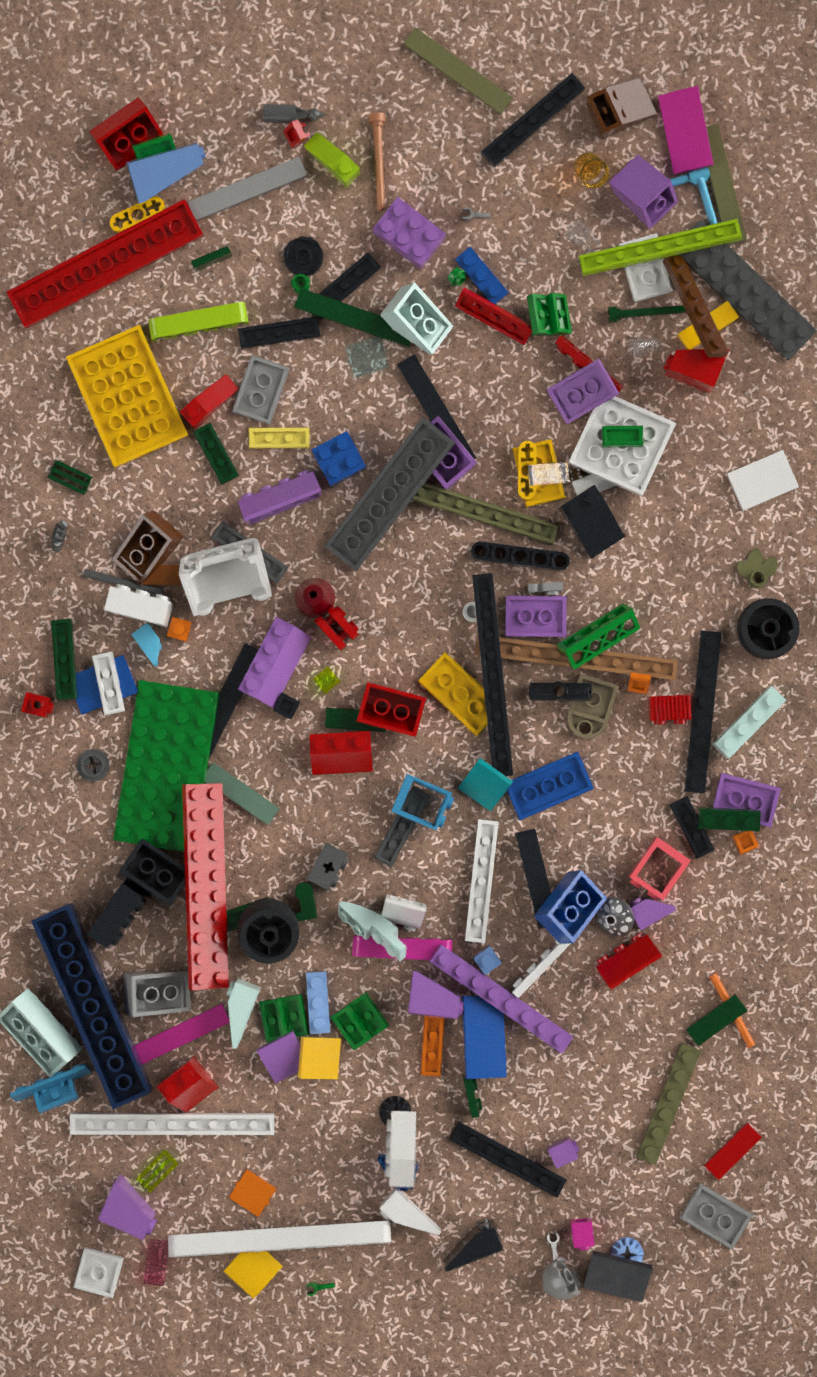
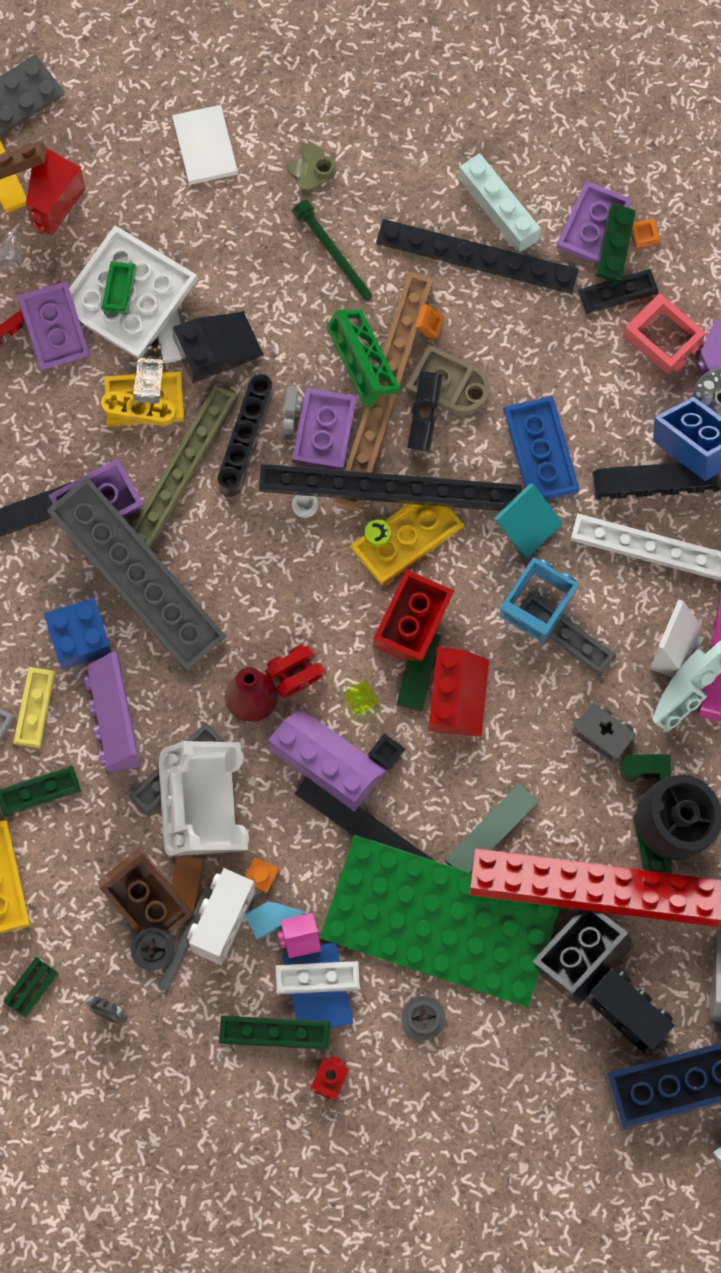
camera: 80 degrees left, 15 degrees down
(107, 567) = (161, 957): none -> black gear
(136, 665) = (299, 935): none -> dark pink brick
(456, 671) = (377, 533): none -> lime tile
(669, 708) = (466, 291): red brick -> none
(716, 569) = (304, 212): none -> dark green piece
(755, 638) = (387, 180): black wheel -> none

